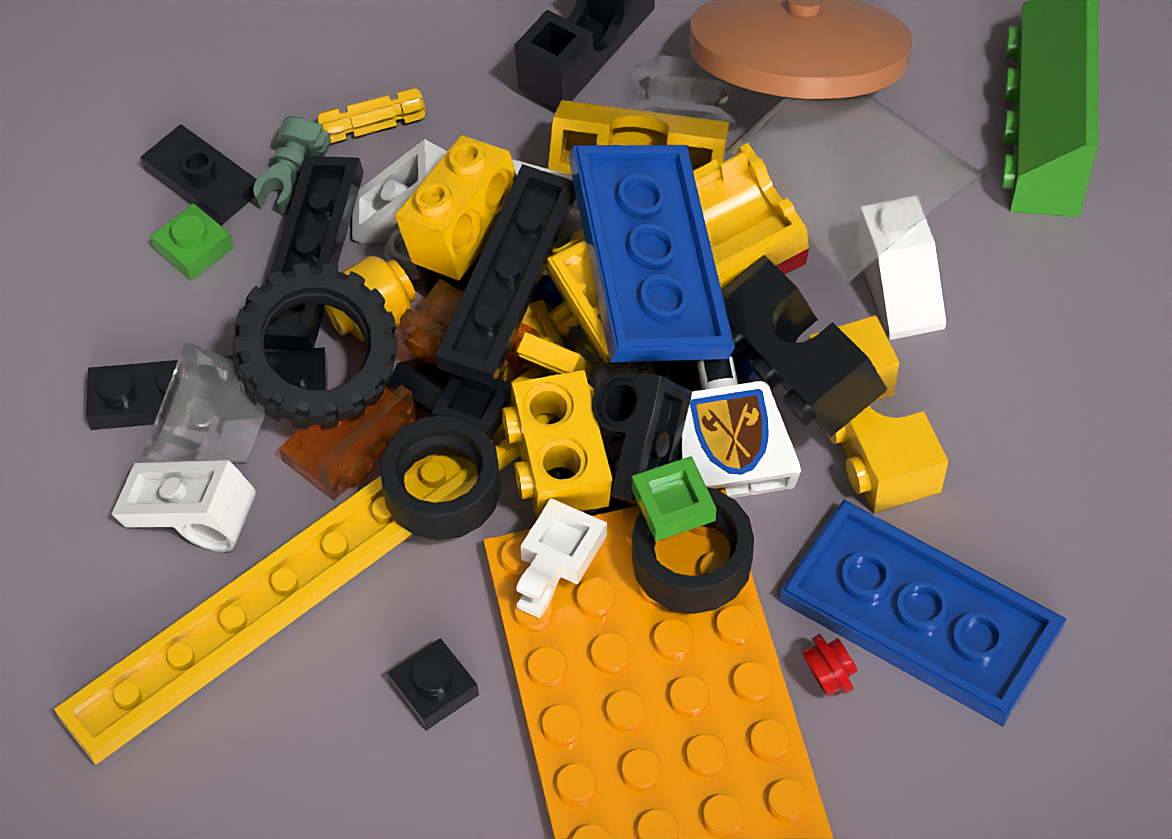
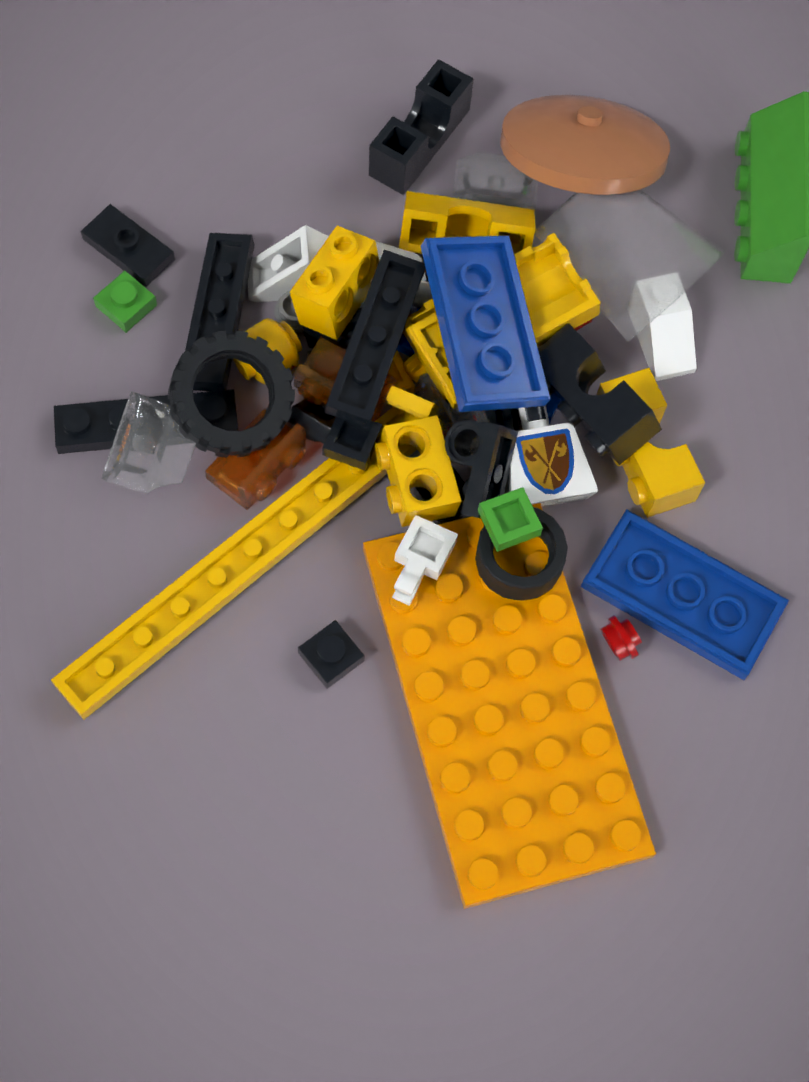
camera: 10 degrees left, 10 degrees up
(197, 498) = (143, 511): white plate -> none
(295, 141) = (201, 220): sand green piece -> none
(373, 115) = (257, 197): yellow axle -> none
(431, 437) = (331, 464): black tyre -> none

